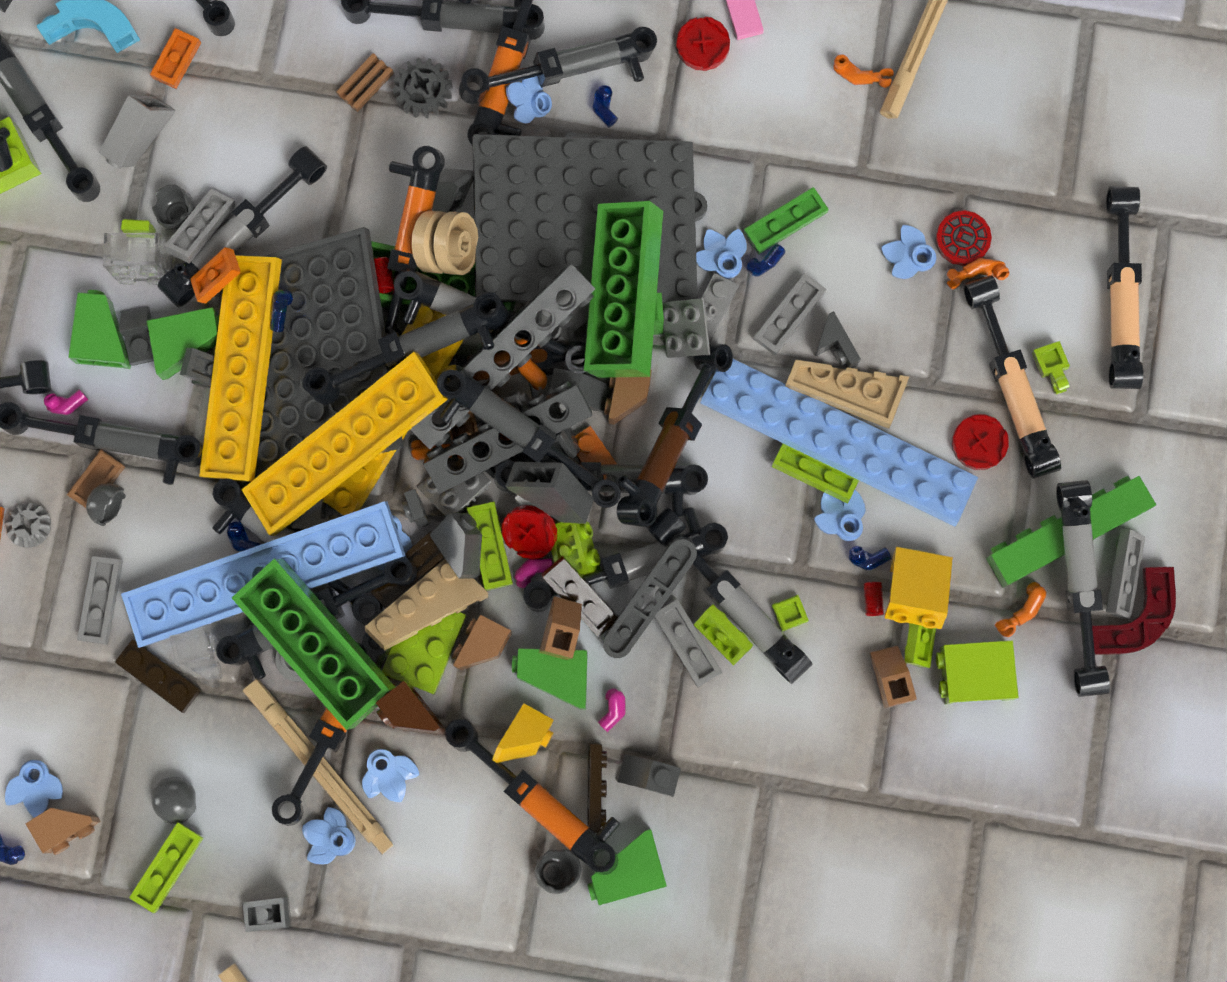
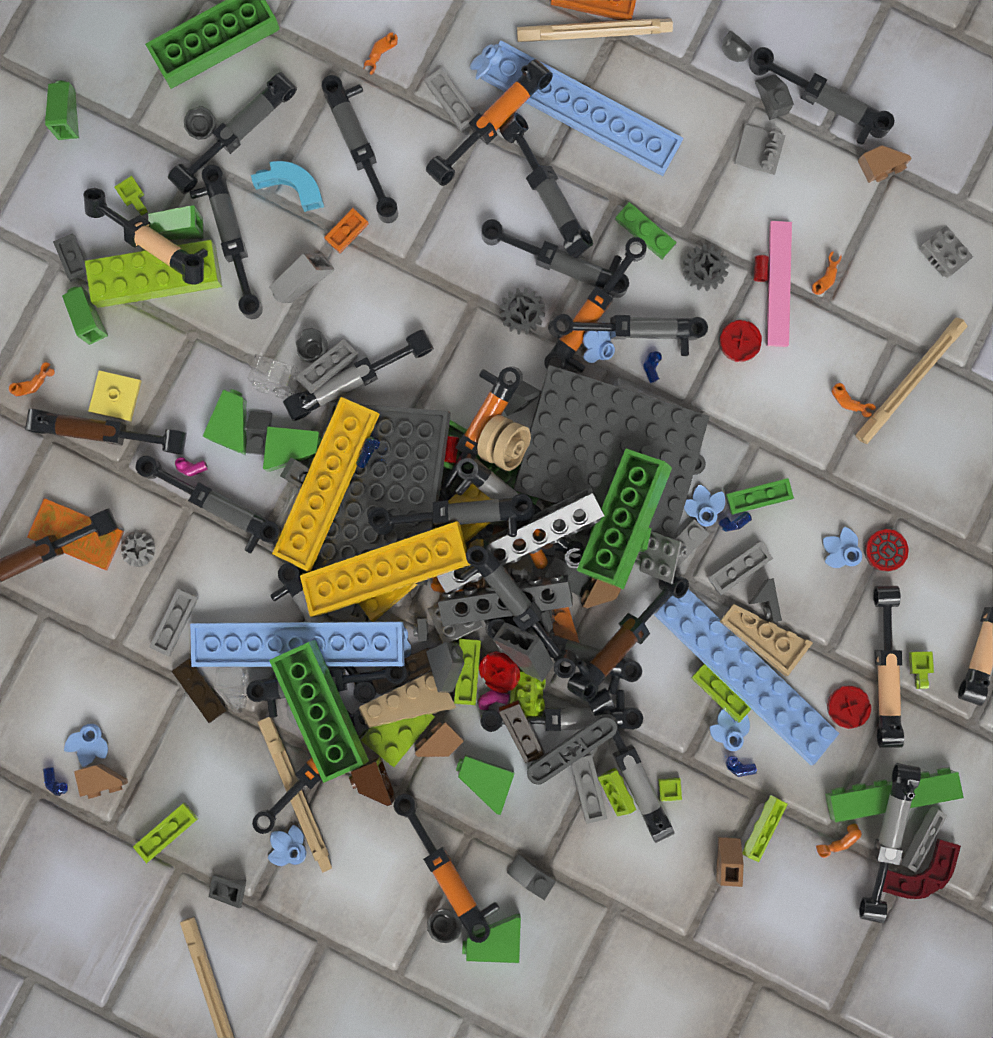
camera: 10 degrees right, 5 degrees up
(101, 470) = (196, 532): medium nougat tile -> none
(104, 503) = (197, 552): dark grey hair -> none
(137, 226) = (281, 353): lime tile -> none
(174, 800) = (185, 785): dark grey hair -> none
(215, 275) = (327, 410): orange plate -> none
(239, 538) = (287, 609): clear blue arm -> none
(354, 79) = (492, 277): medium nougat tile -> none
(391, 778) = (345, 818): light blue plate -> none
(525, 735) = (450, 820): yellow slope -> none
(561, 629) = (501, 754): medium nougat slope -> none
(596, 787) = (490, 873): dark brown plate -> none
(616, 708) = (522, 819): dark pink arm -> none
(873, 601) = (733, 794): red piece -> none
(919, 588) = (770, 804): yellow panel -> none
(977, 672) = (792, 878): lime panel -> none
(979, 266) = (894, 577): orange arm -> none

